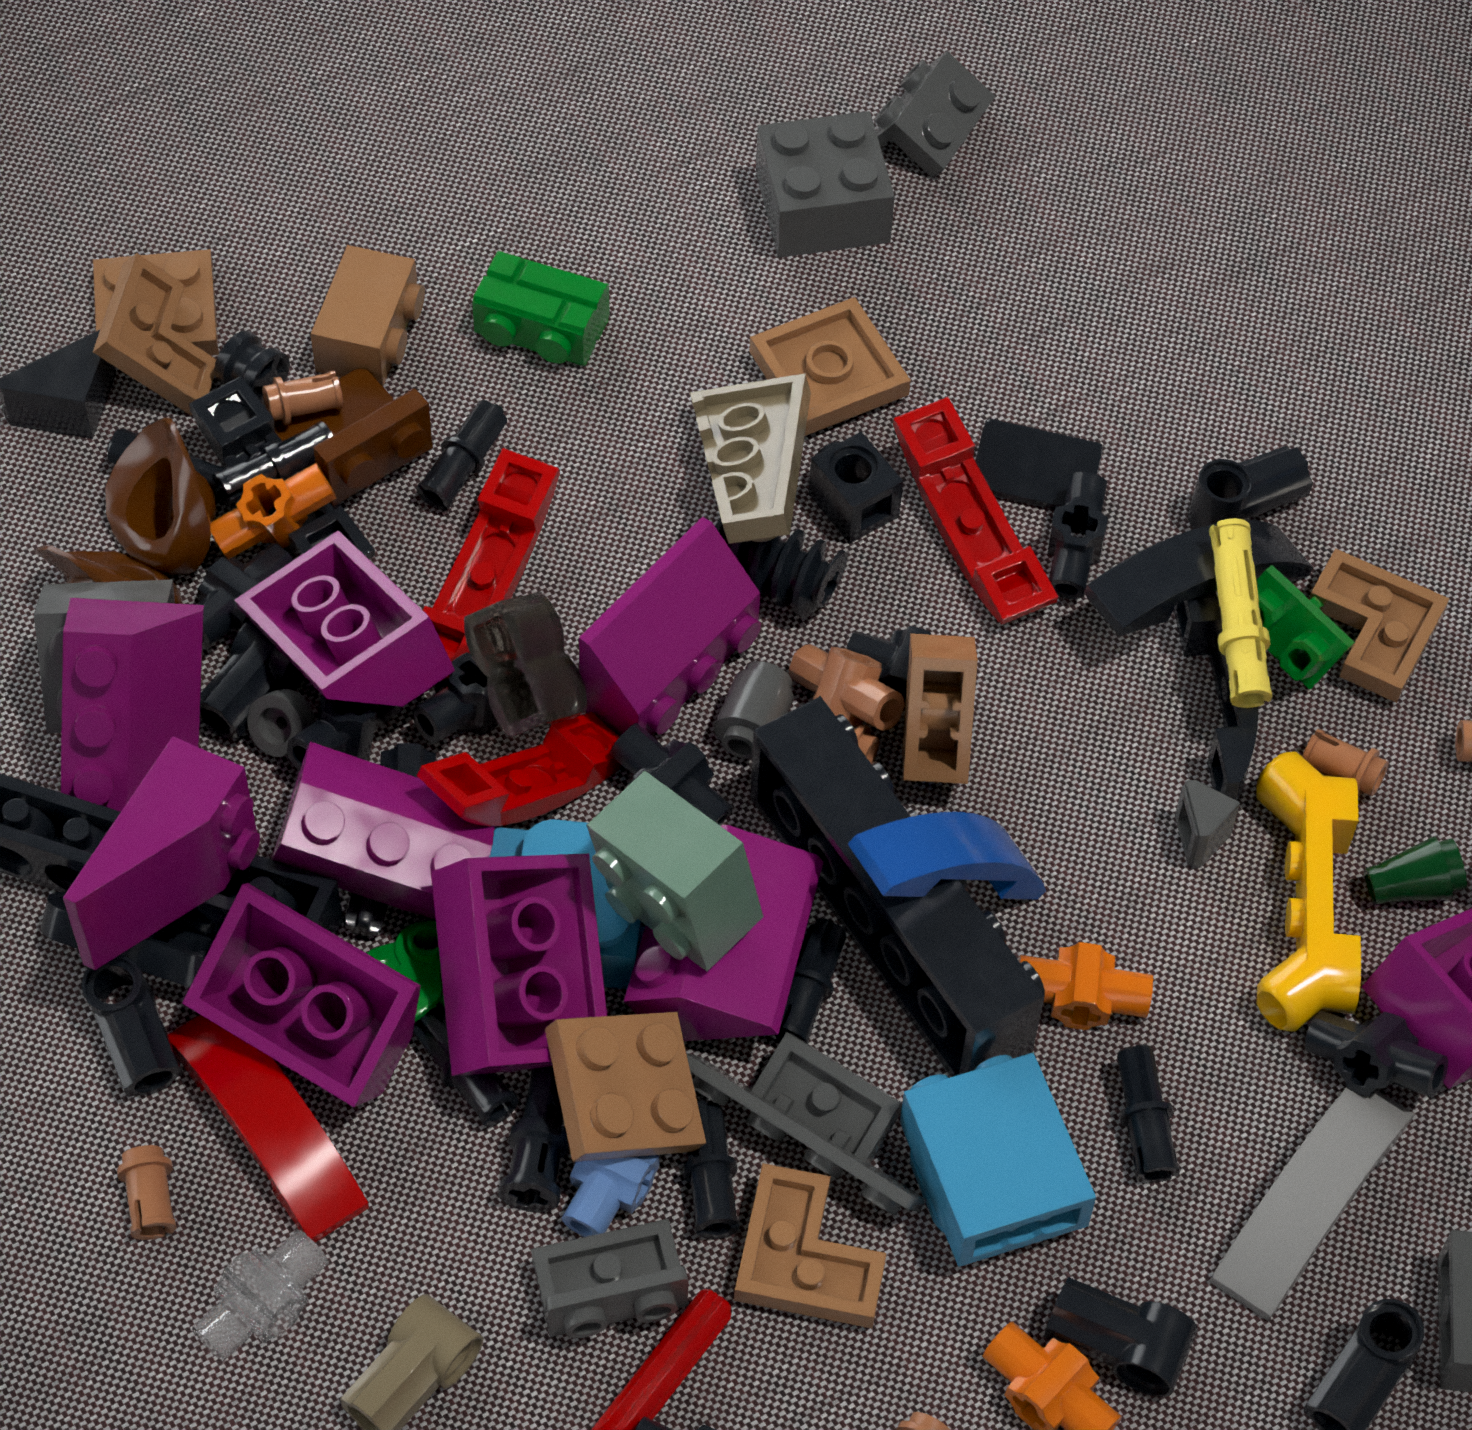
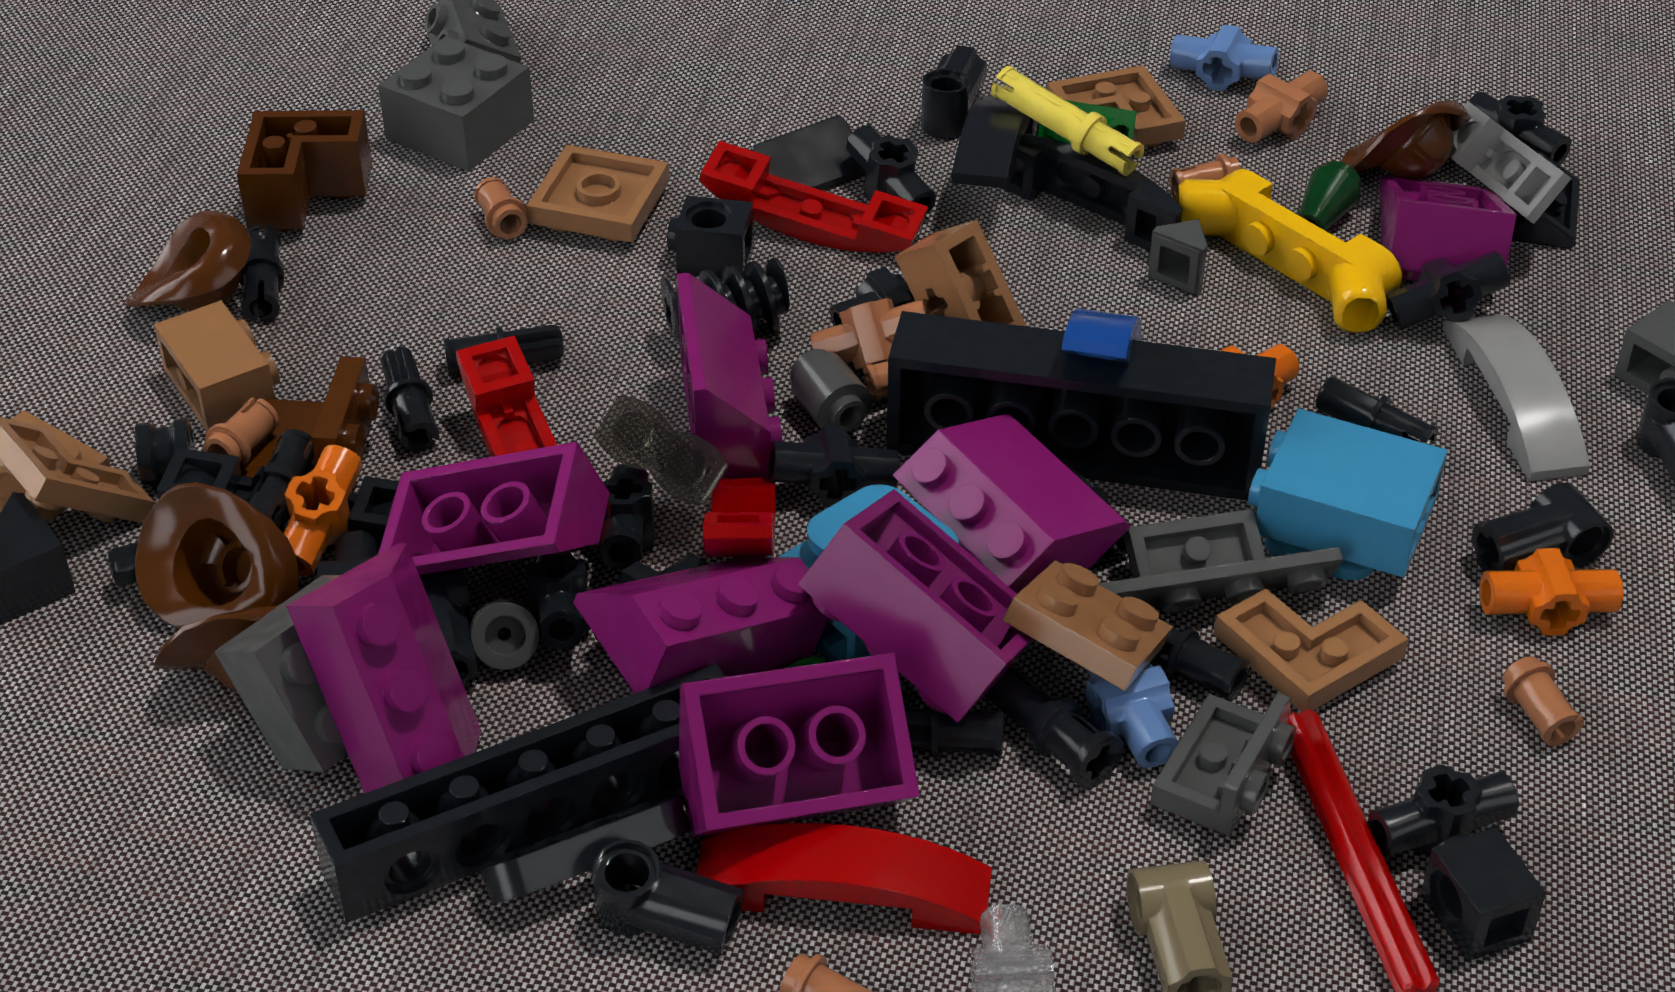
camera: 45 degrees left, 15 degrees down
(164, 852) = (589, 699): magenta slope -> none
(444, 211) = (197, 264): none -> reddish brown hat
(508, 237) = (262, 275): none -> black pin
(540, 309) = (348, 283): green brick -> none
(580, 463) = (536, 344): none -> black axle
(623, 150) = (299, 158): none -> reddish brown brick
(674, 871) = (977, 442): sand green brick -> none
(733, 329) = (504, 214): none -> nougat pin
(754, 452) = (637, 243): dark tan wing -> none

